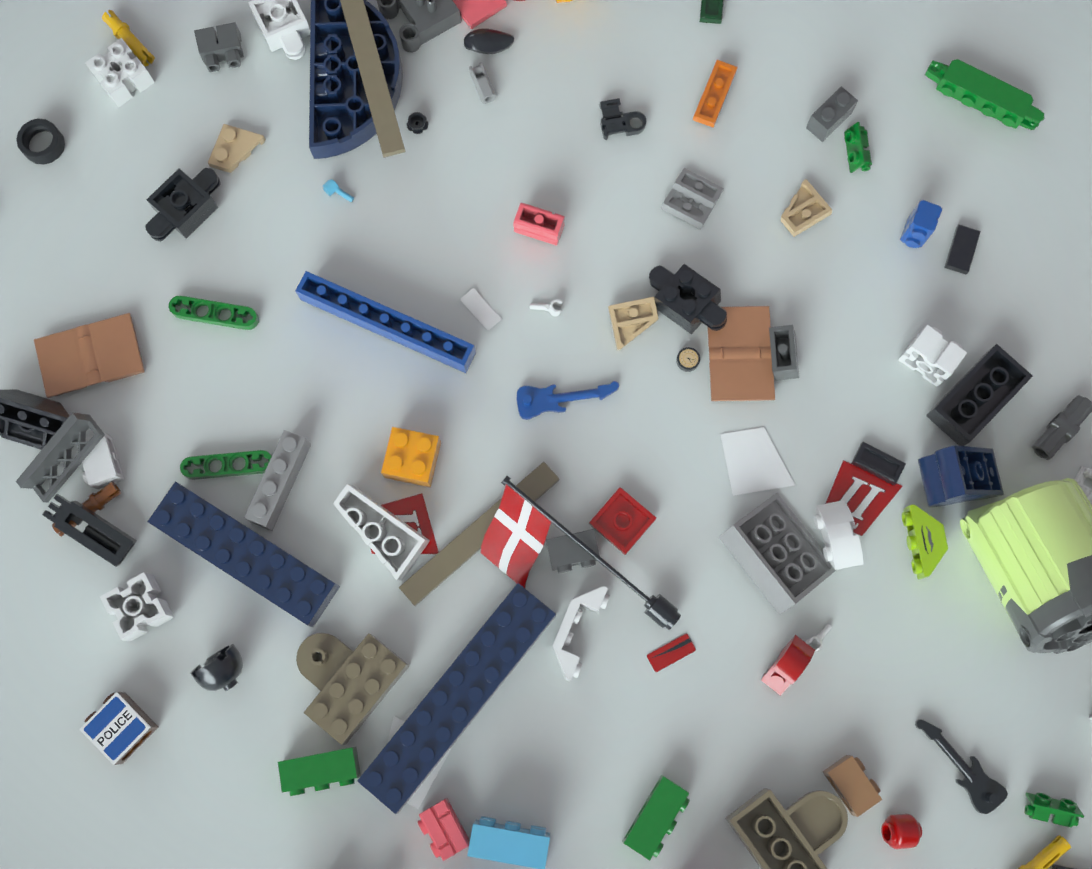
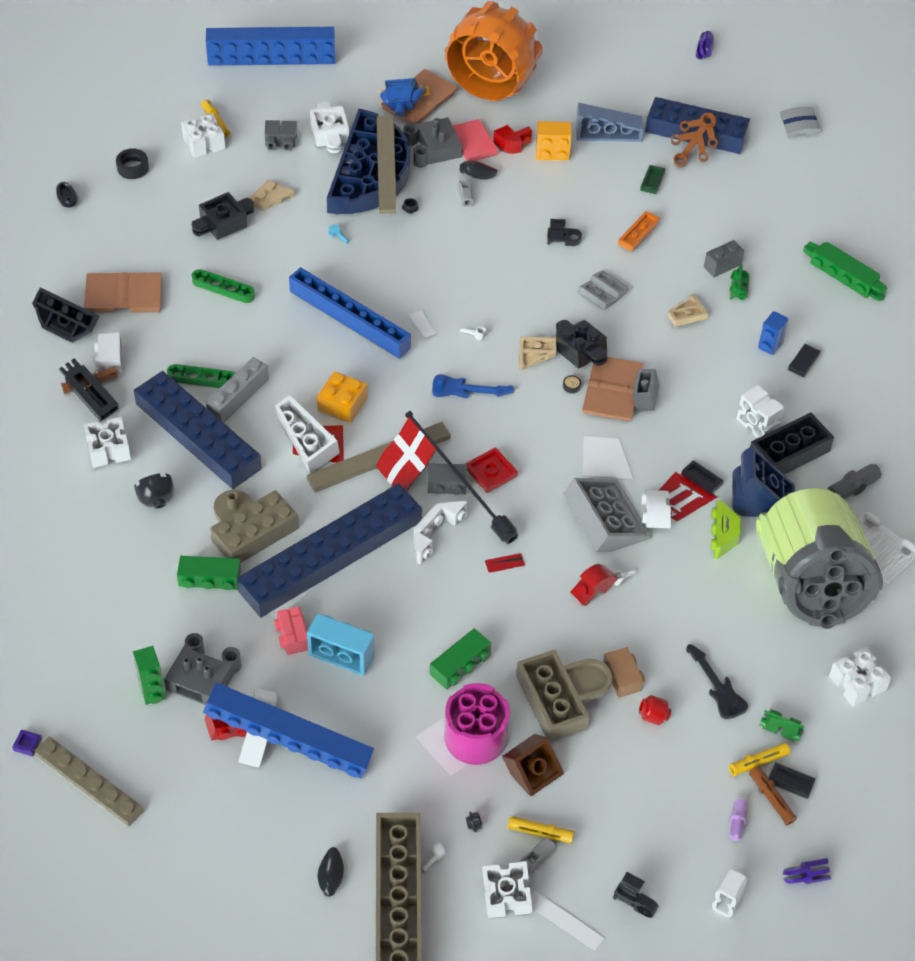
camera: 10 degrees right, 25 degrees down
(59, 450) = (82, 337): dark grey fence -> none
(118, 727) = (67, 514): piece -> none
(539, 223) = (482, 278): coral brick -> none

